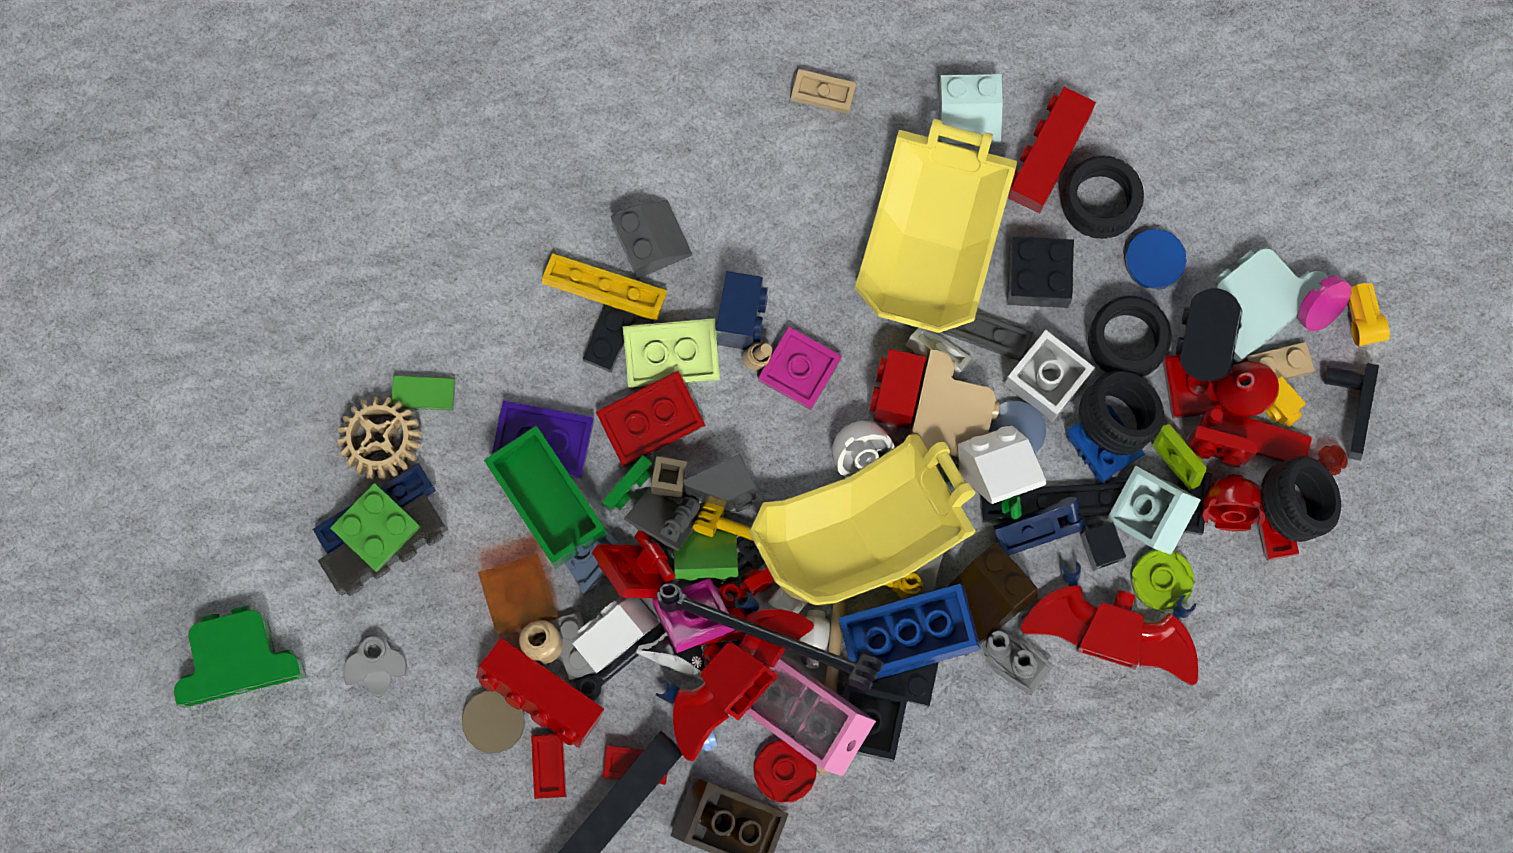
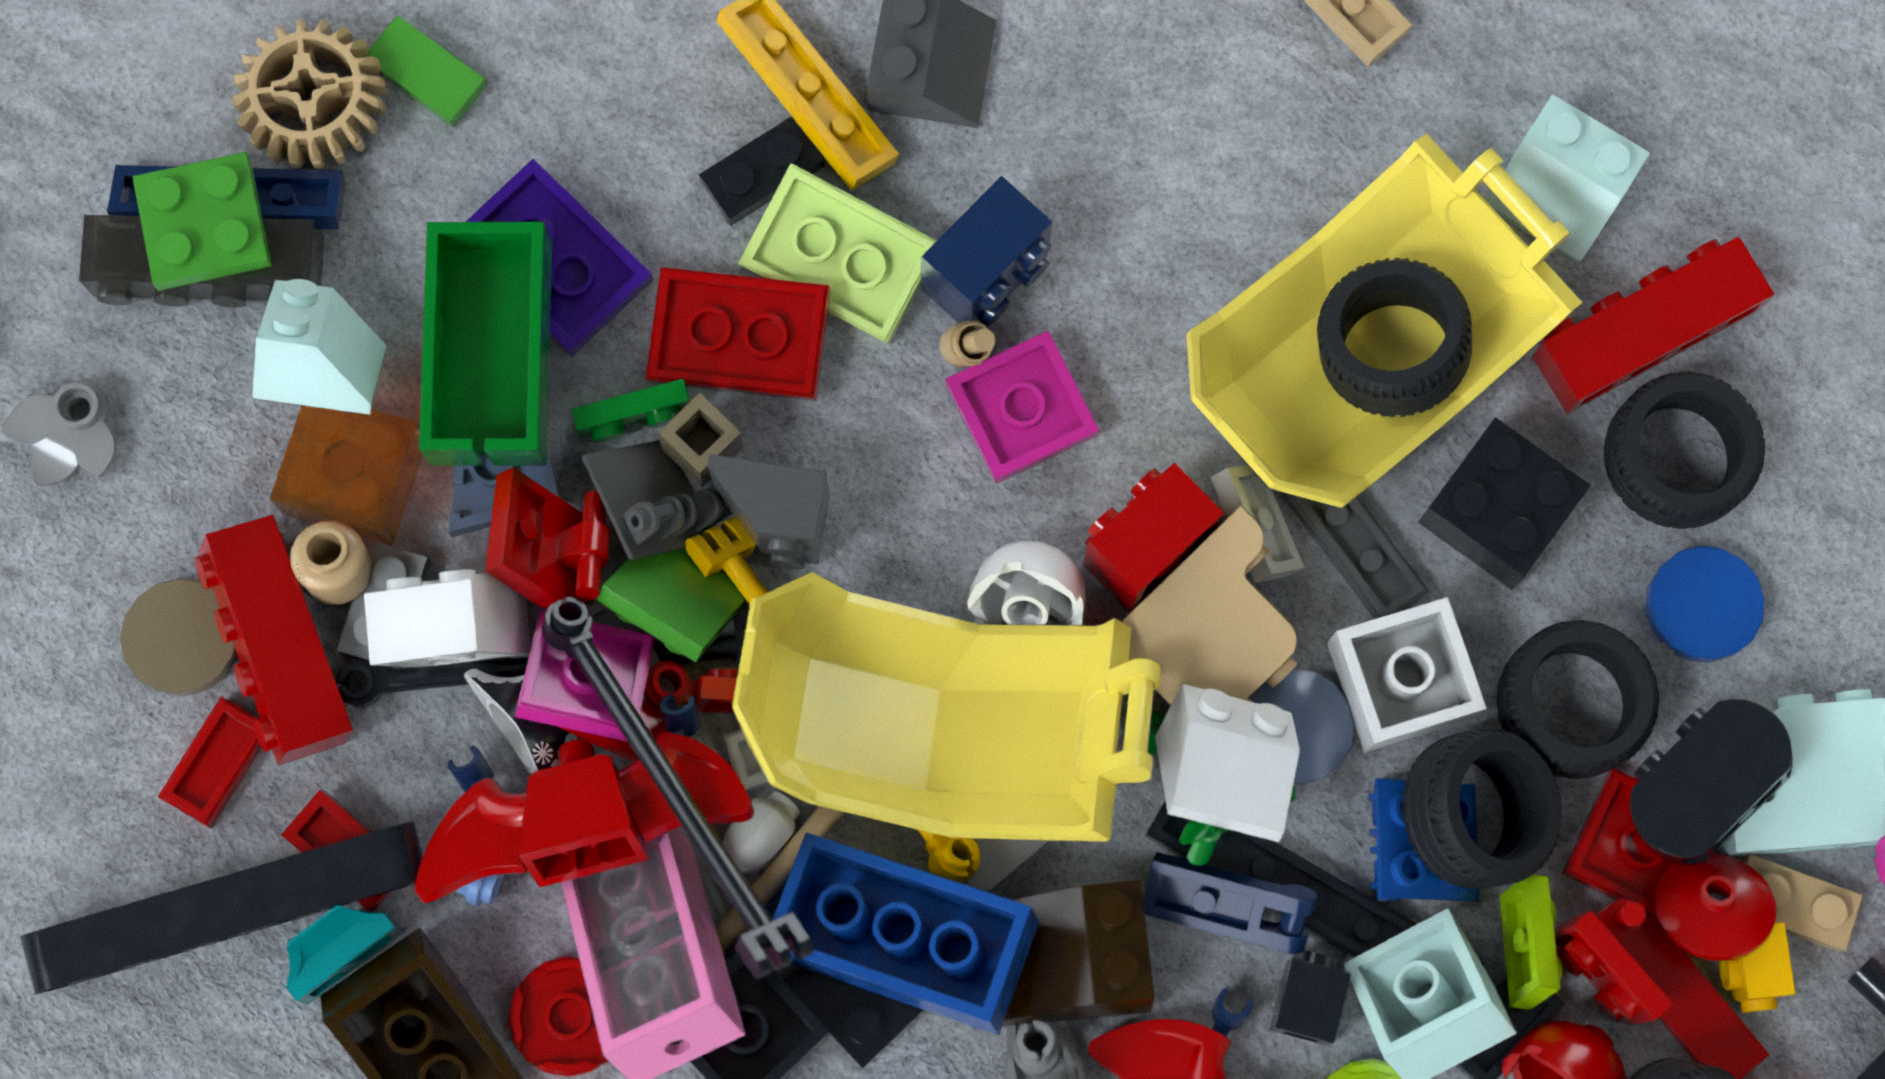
camera: 30 degrees right, 0 degrees up
(469, 551) = (316, 350): none -> light aqua slope
(663, 809) = (335, 948): none -> teal slope
(933, 203) = (1395, 284): none -> black tyre

